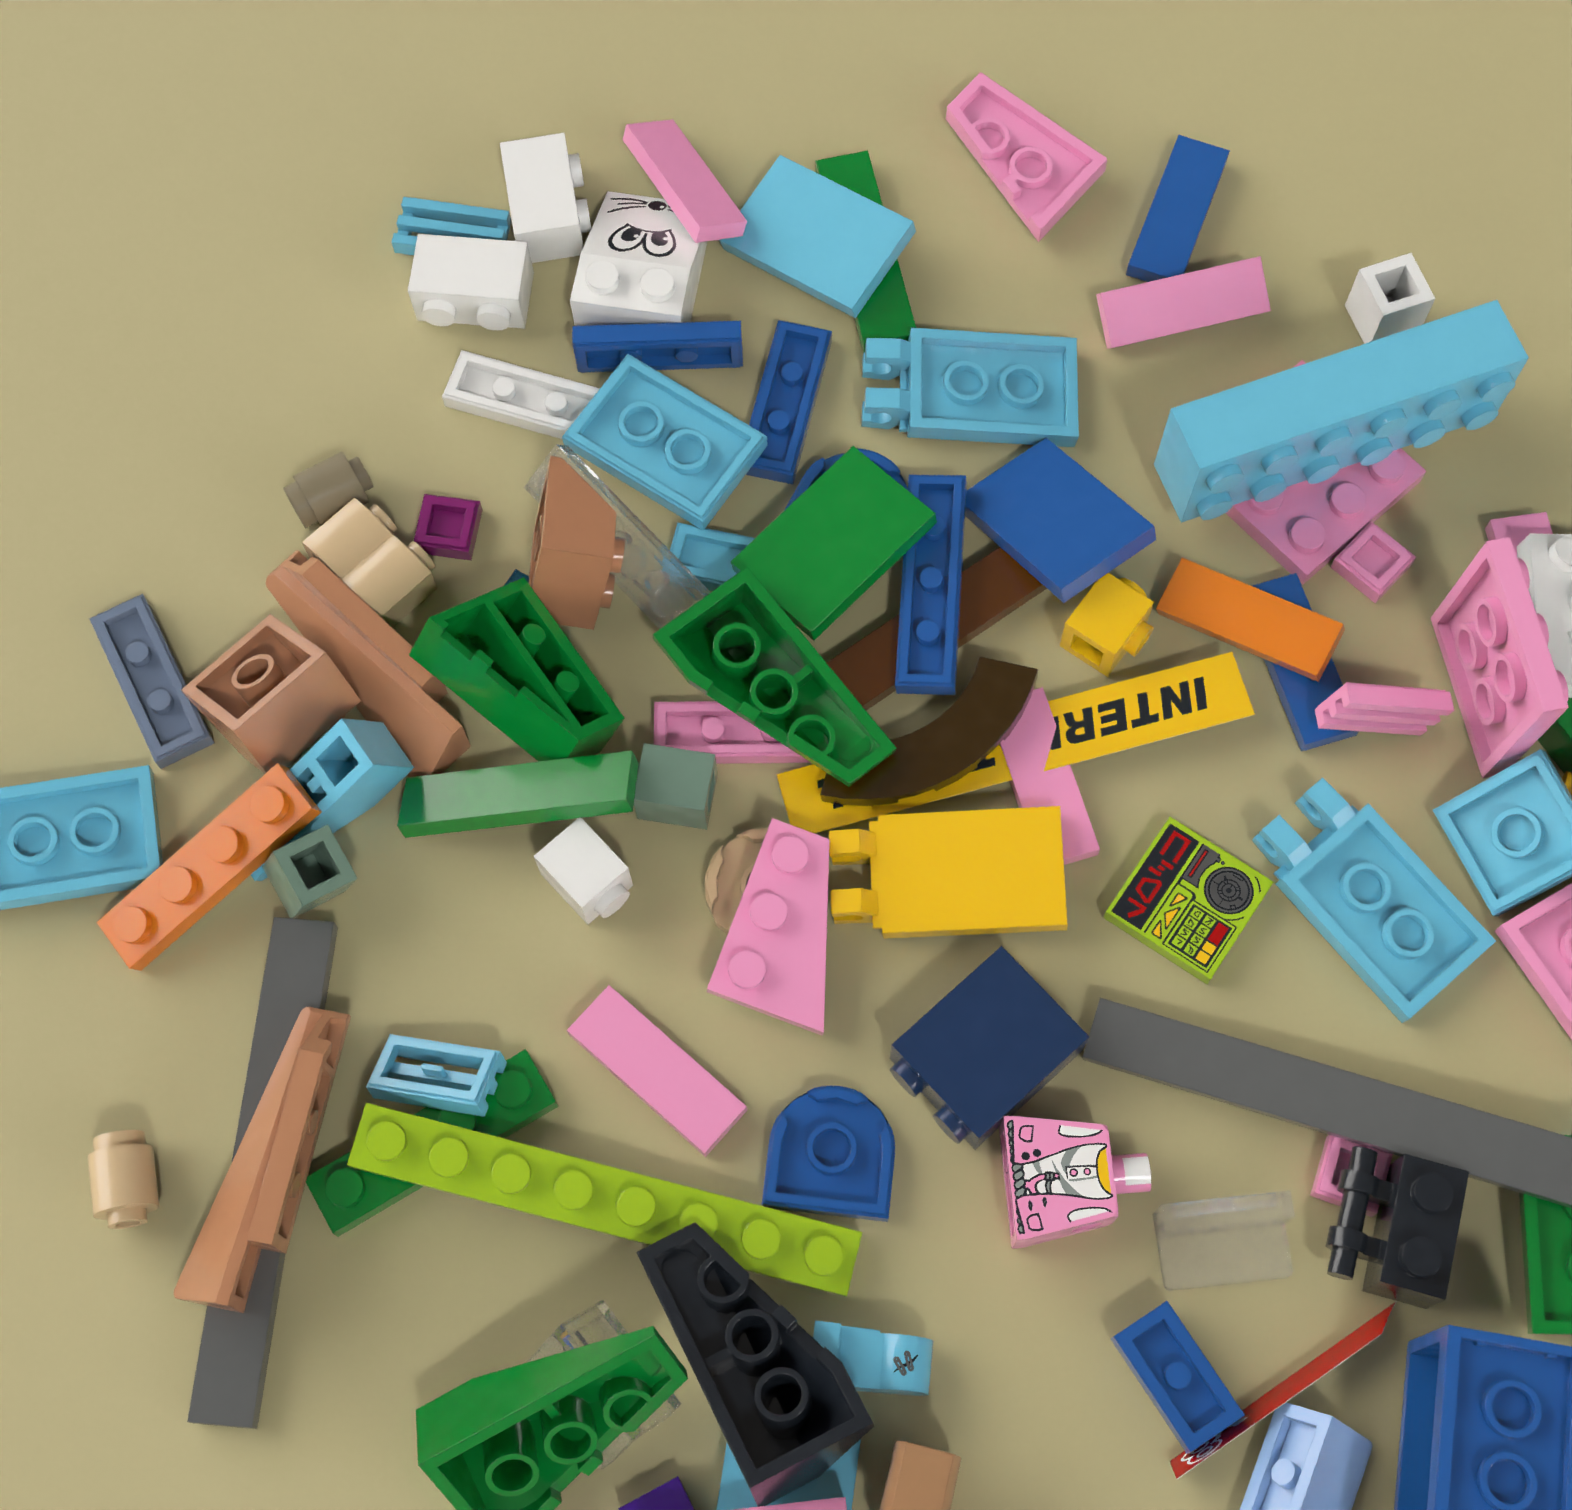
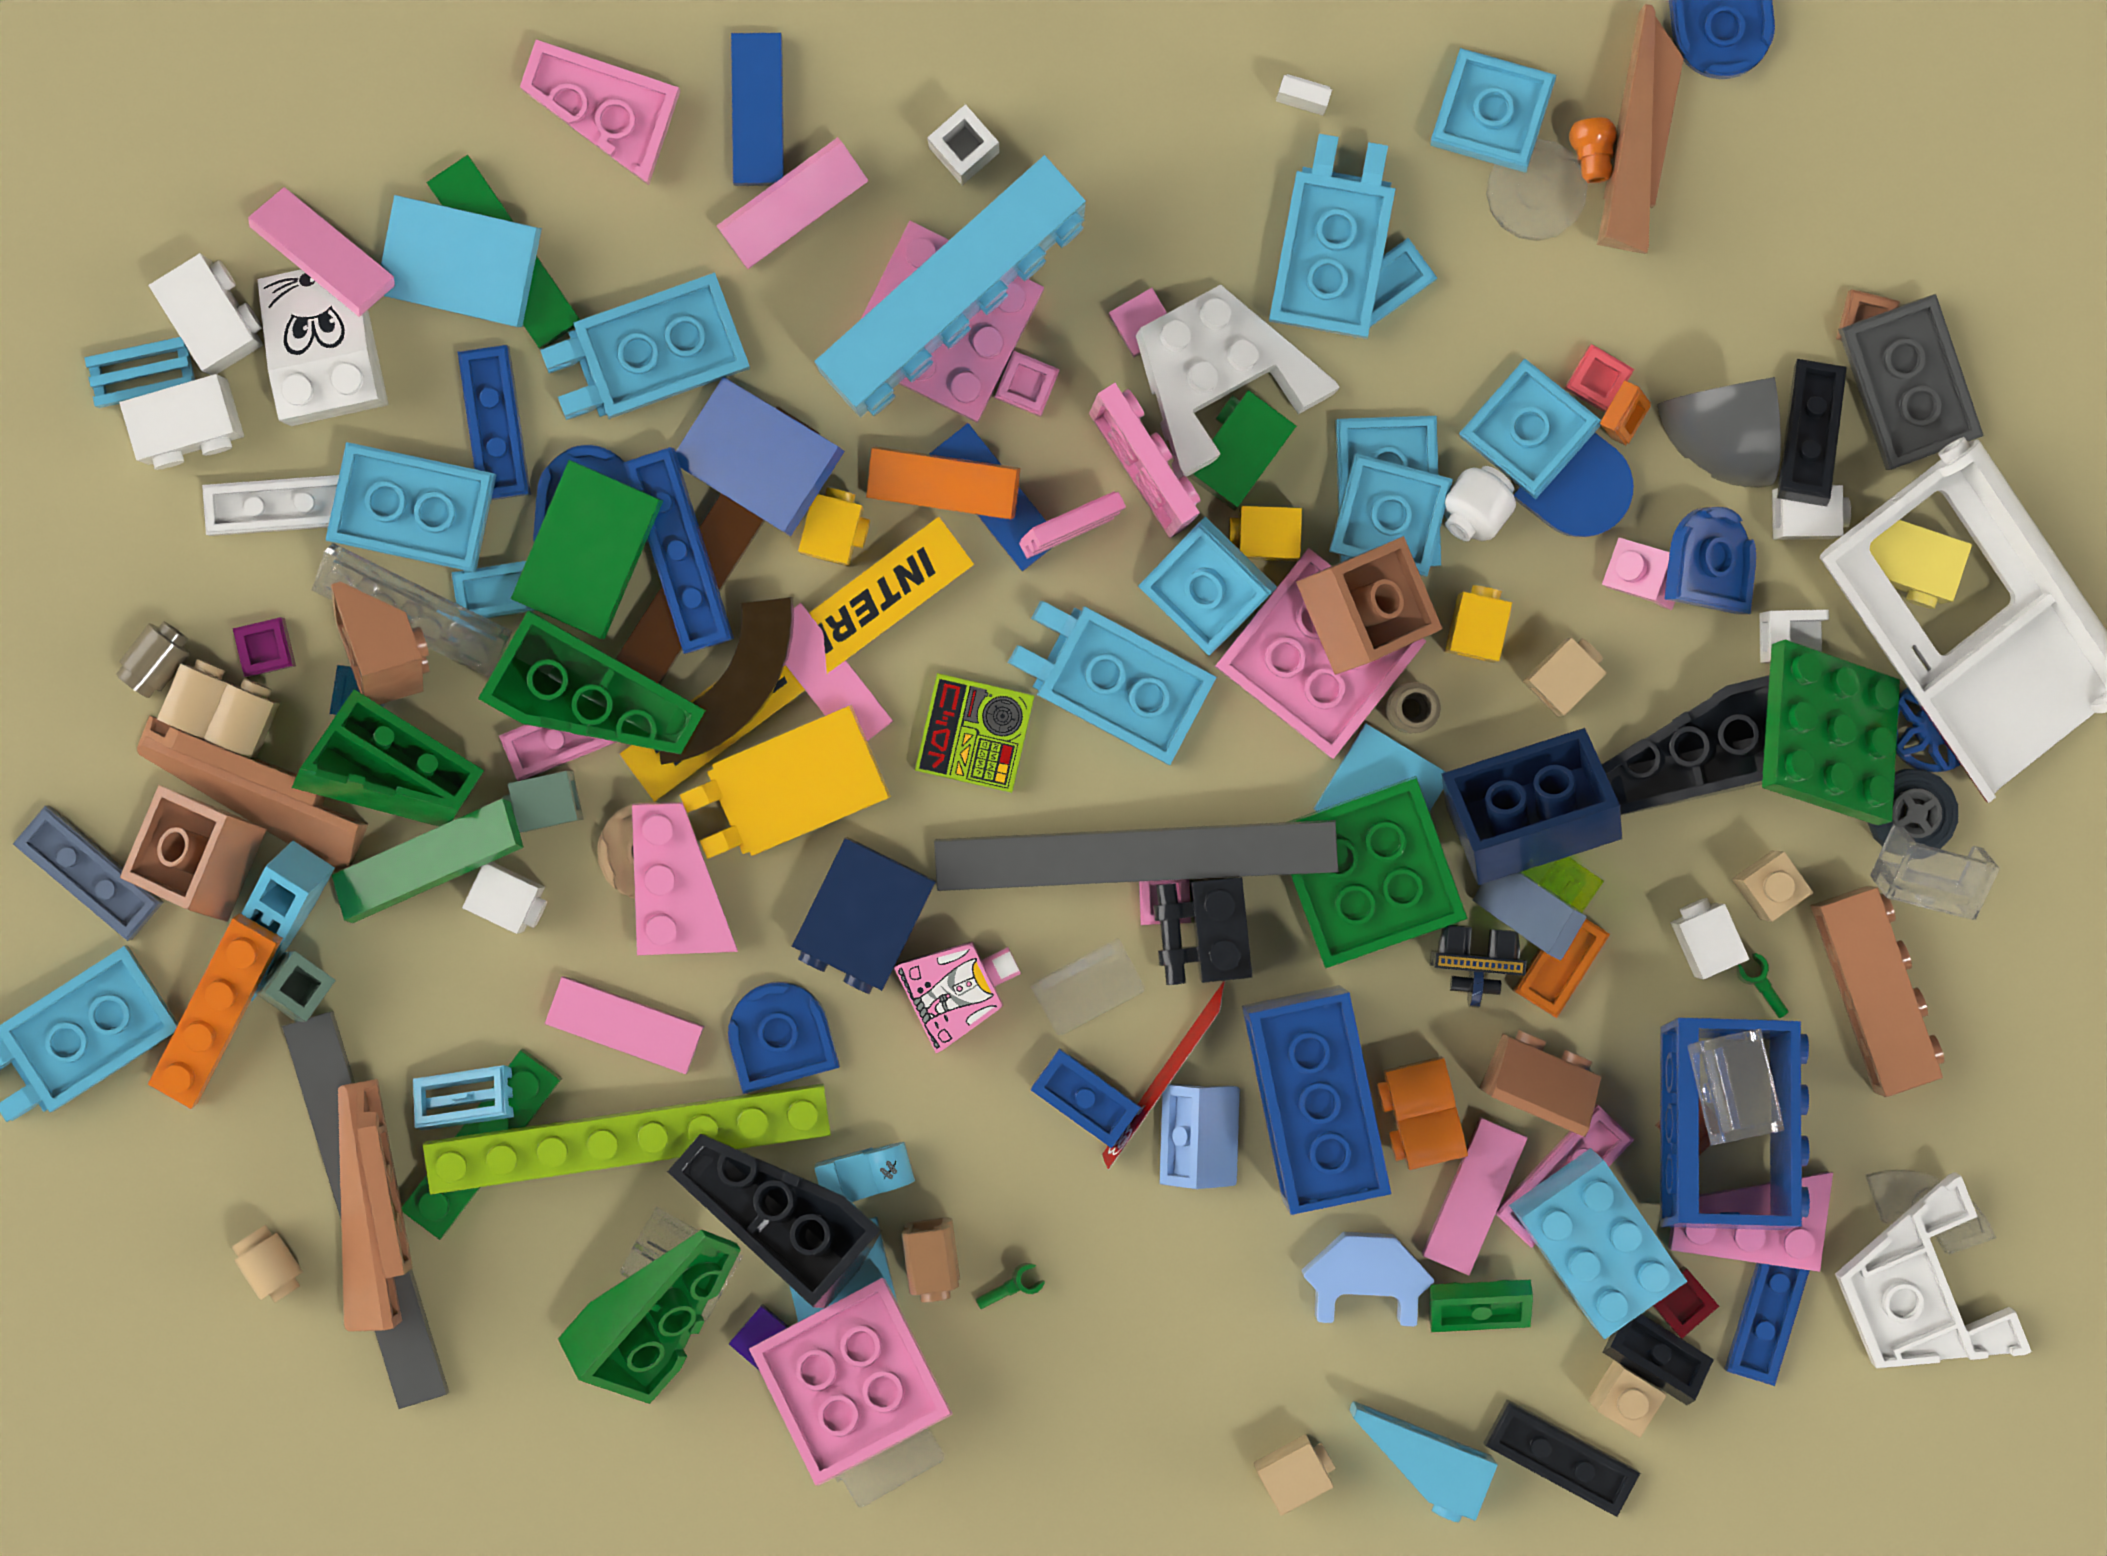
camera: 25 degrees left, 20 degrees up
(659, 345) = (368, 420): blue tile -> none

